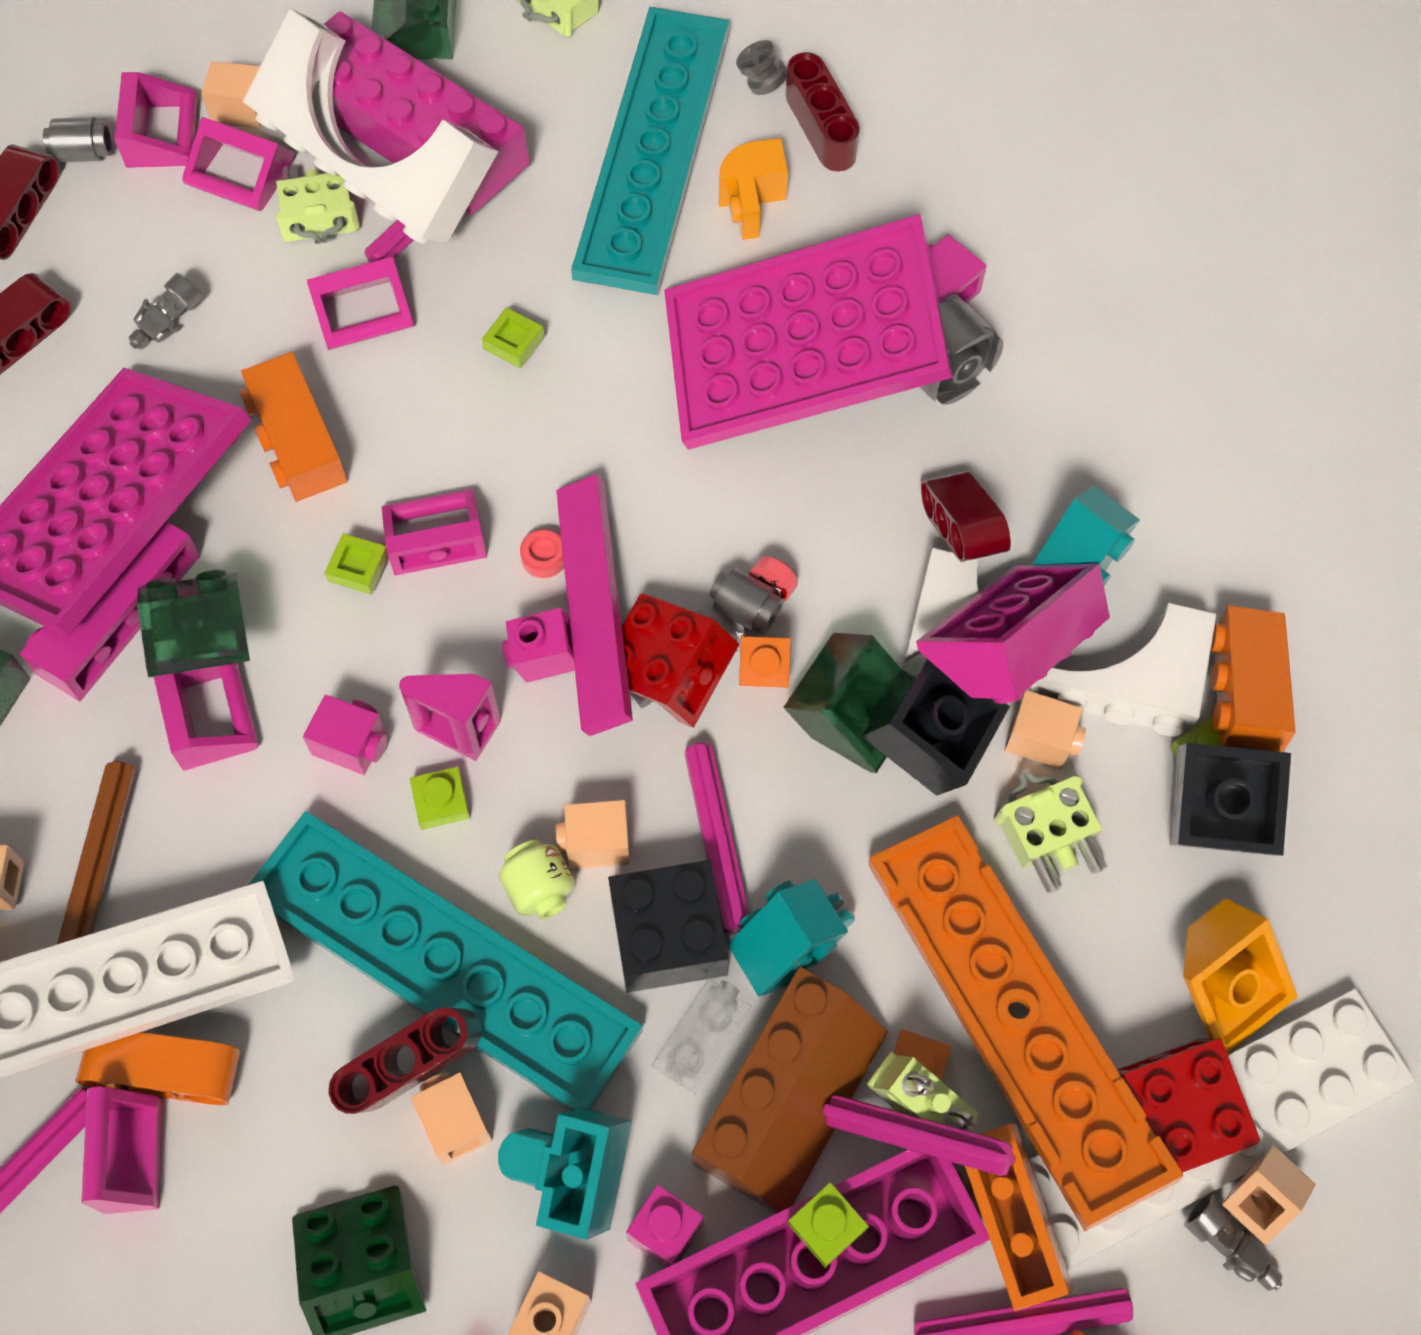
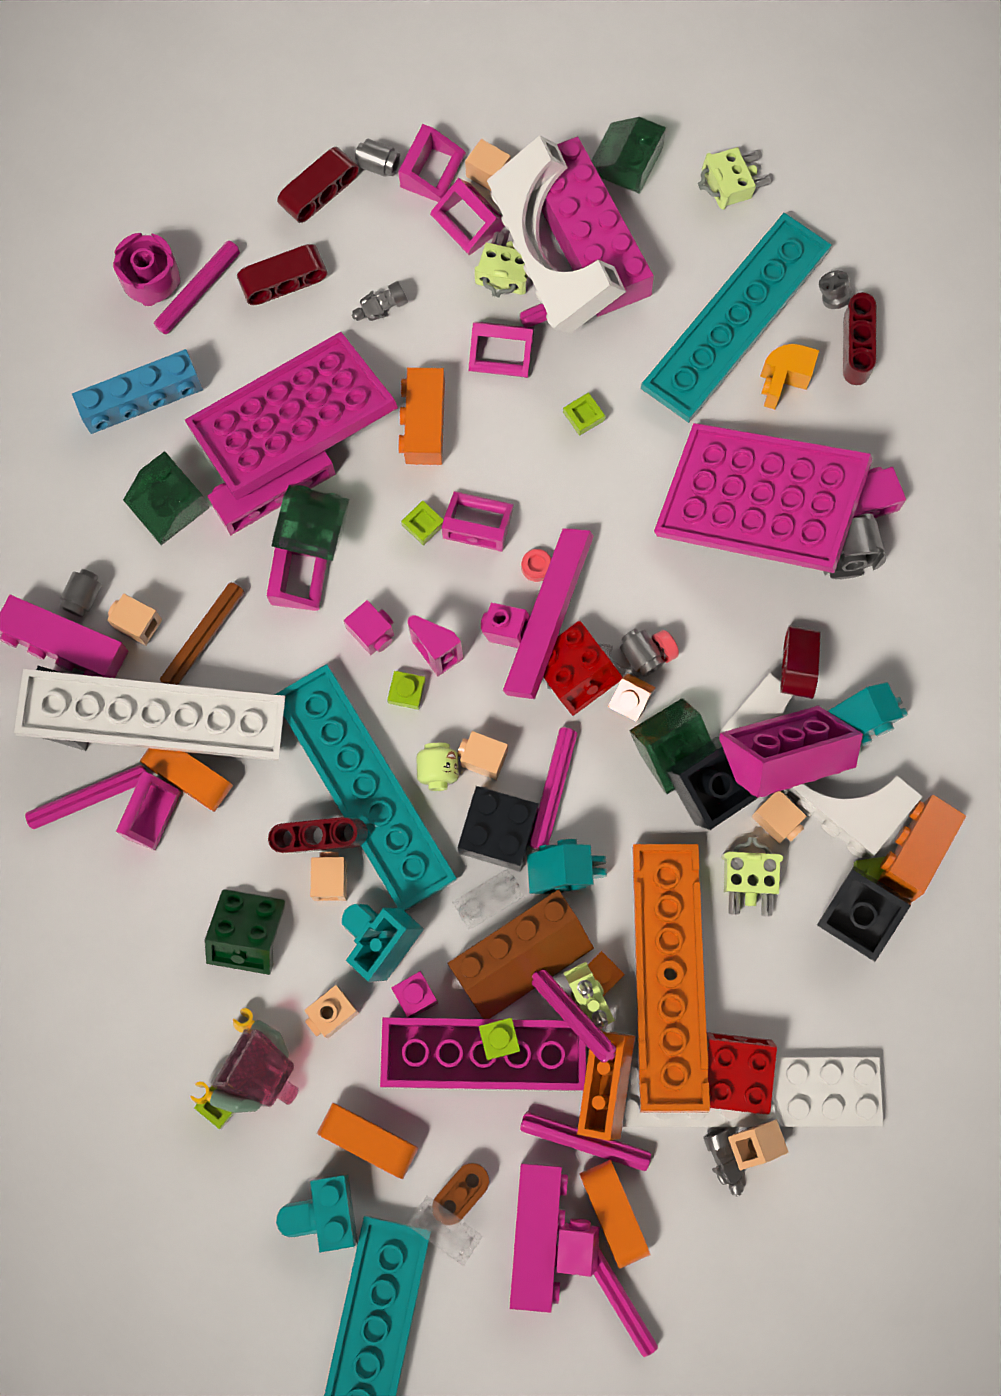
camera: 30 degrees right, 10 degrees up
(1235, 972) = (809, 1014): light orange slope -> none

